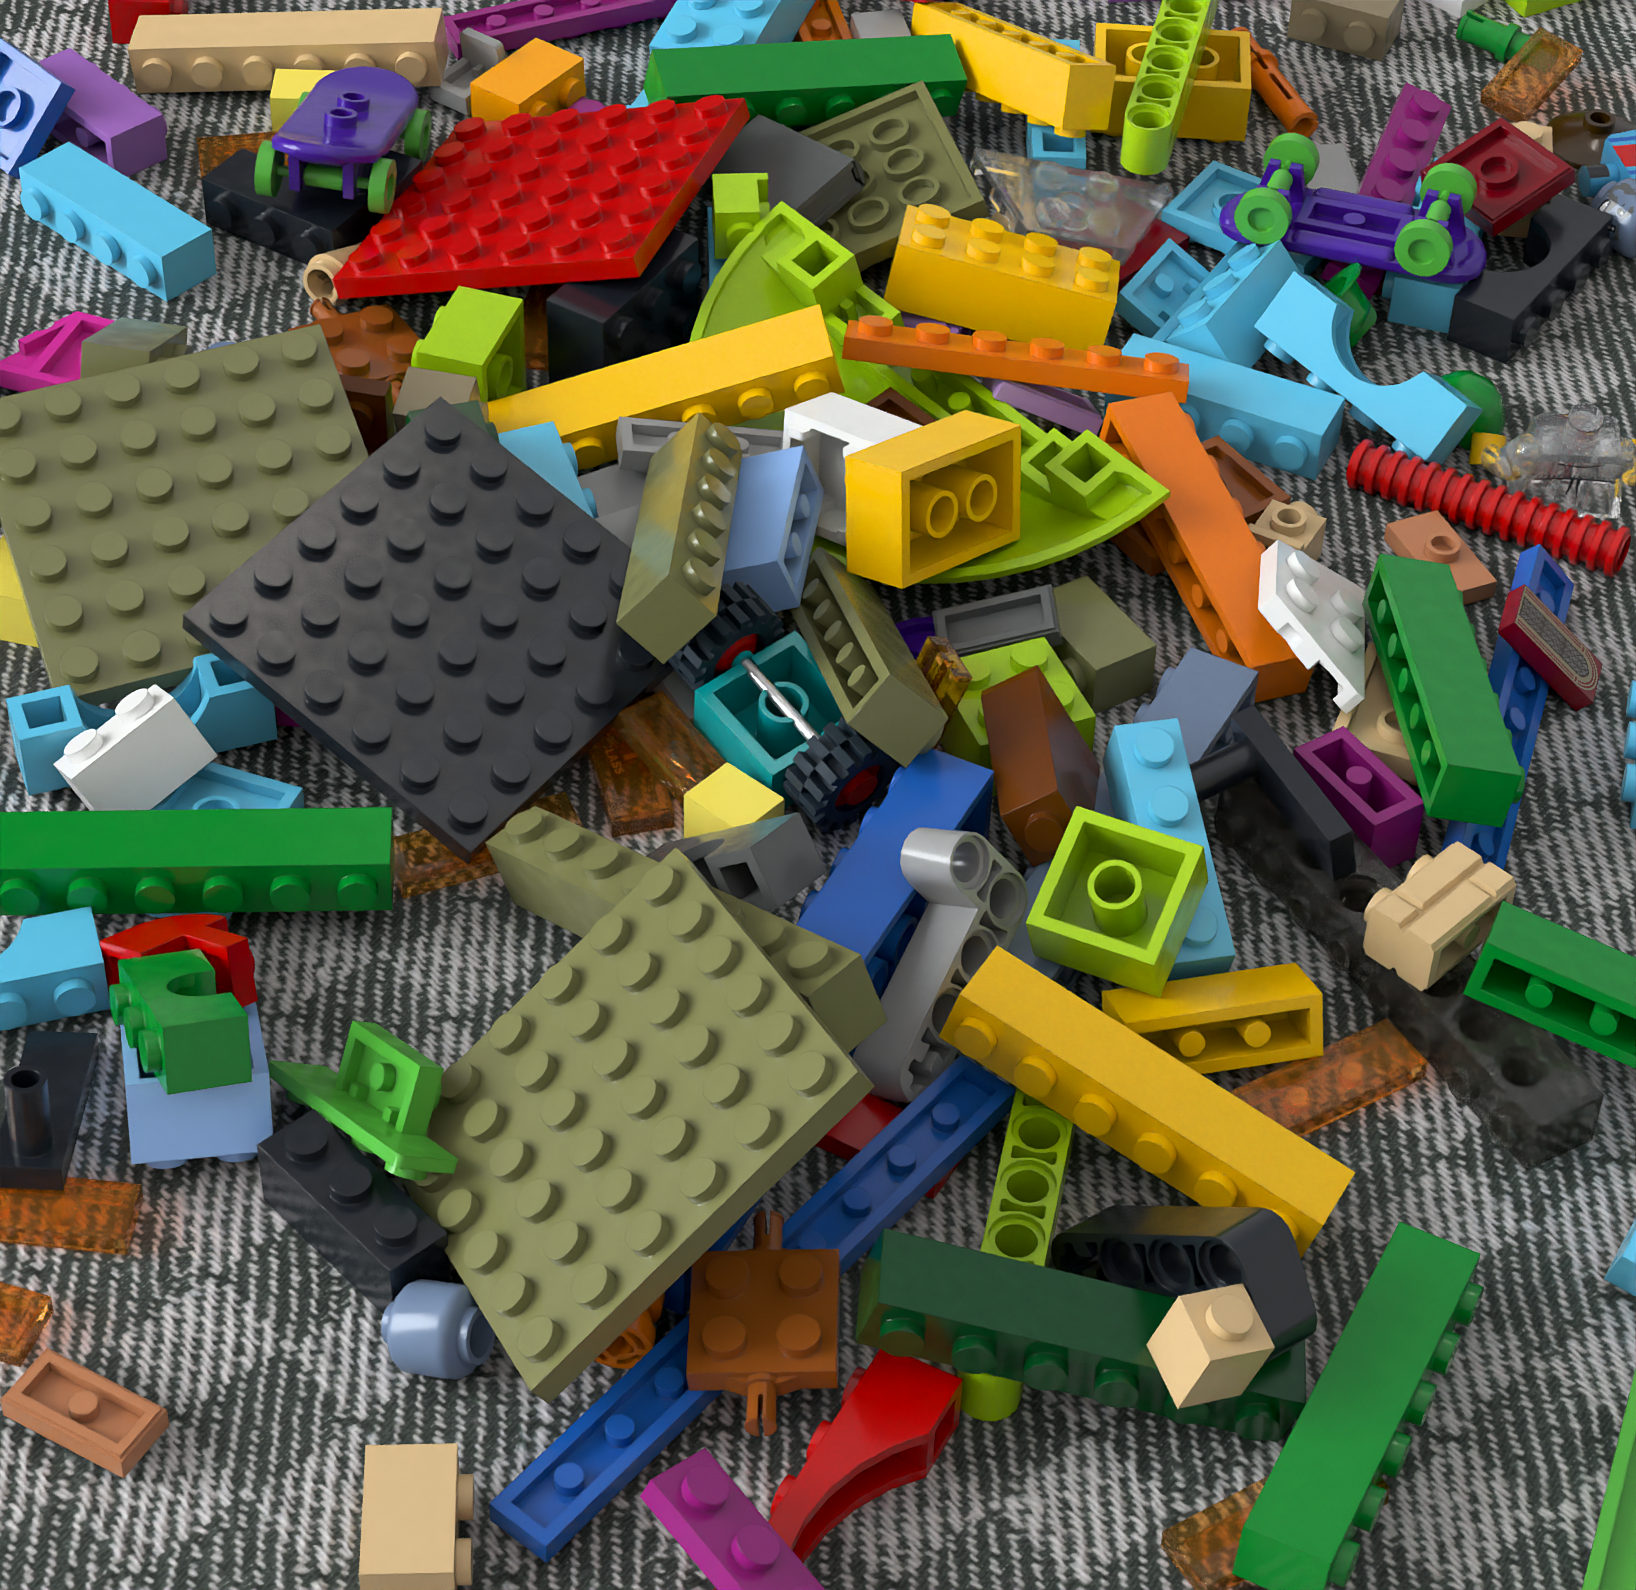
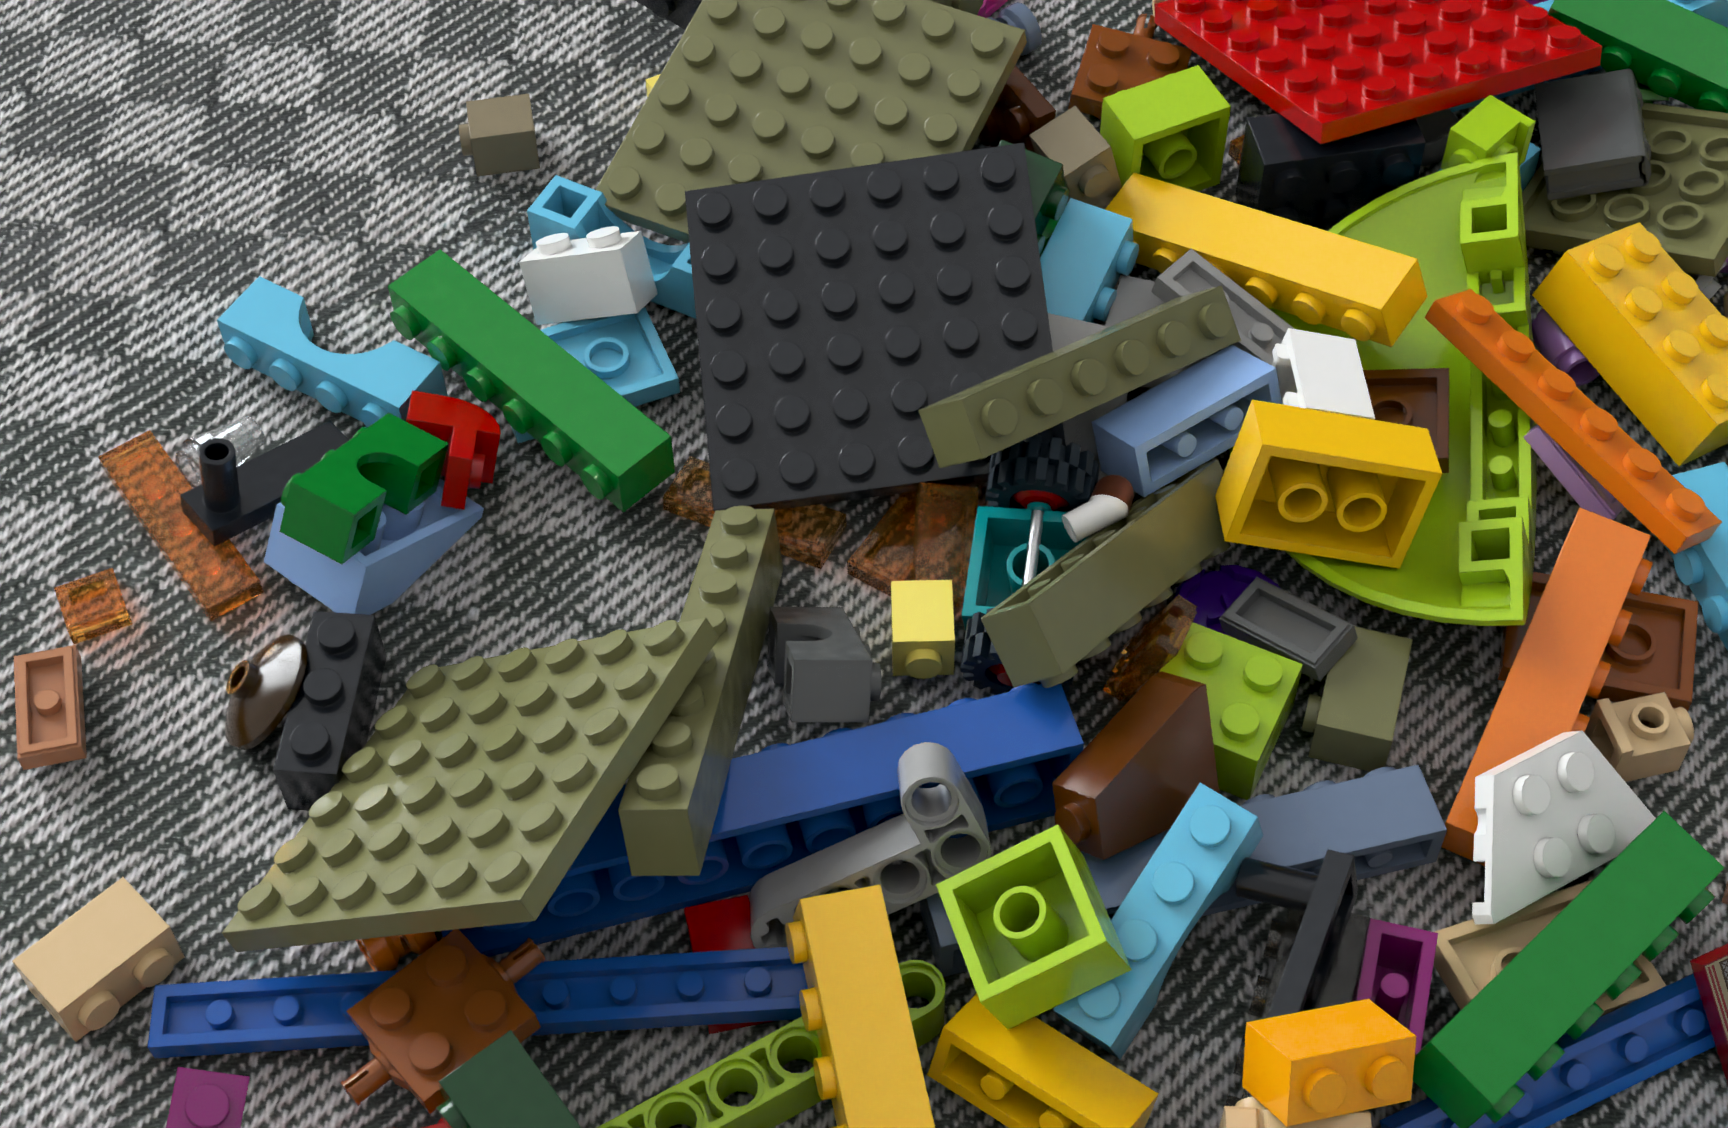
camera: 50 degrees right, 10 degrees up
(301, 1245) = (264, 691): none -> dark brown dish
(377, 1098) = (406, 645): bright green bracket -> none
(436, 1330) = (268, 824): sand blue head -> none
(801, 621) = (1107, 505): none -> white arm
(1400, 829) = (1328, 1062): none -> light orange brick

